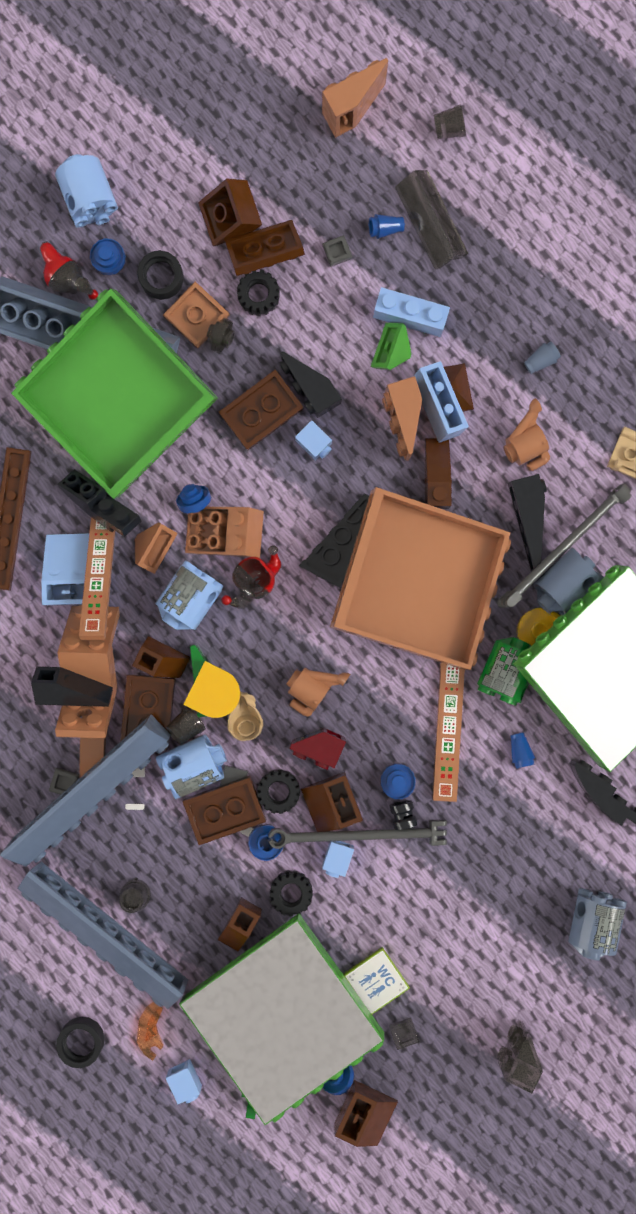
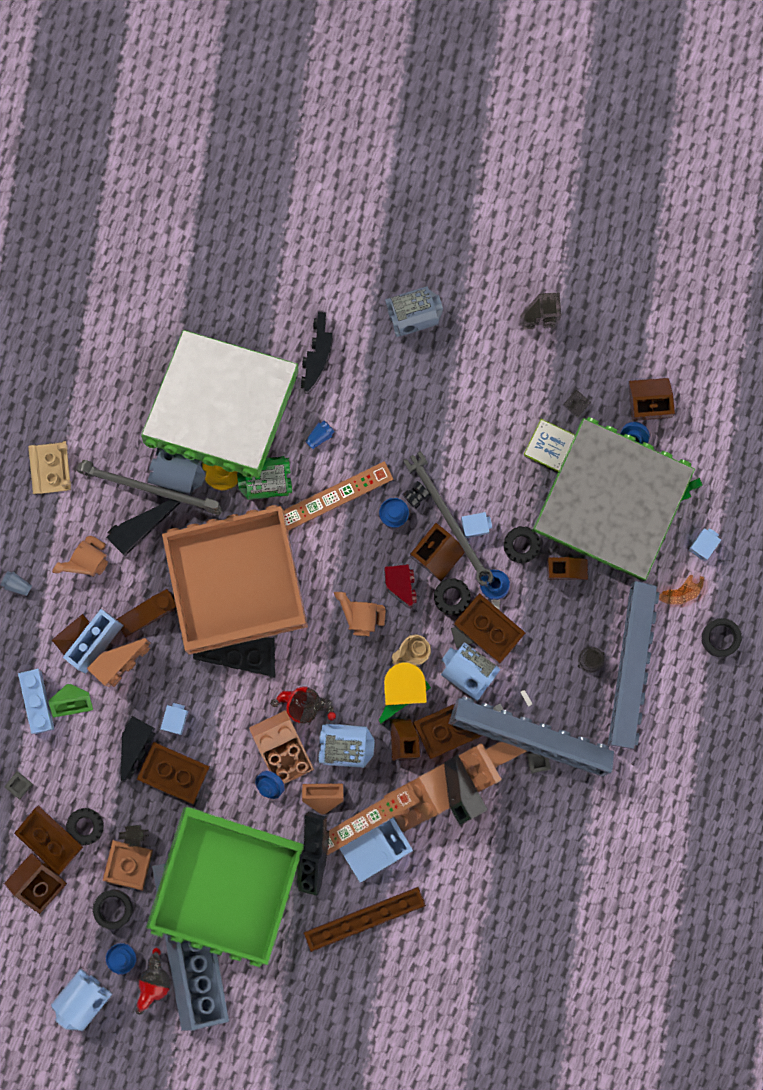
camera: 125 degrees left, 5 degrees down
(185, 726) = (442, 692): clear smoke piece -> none

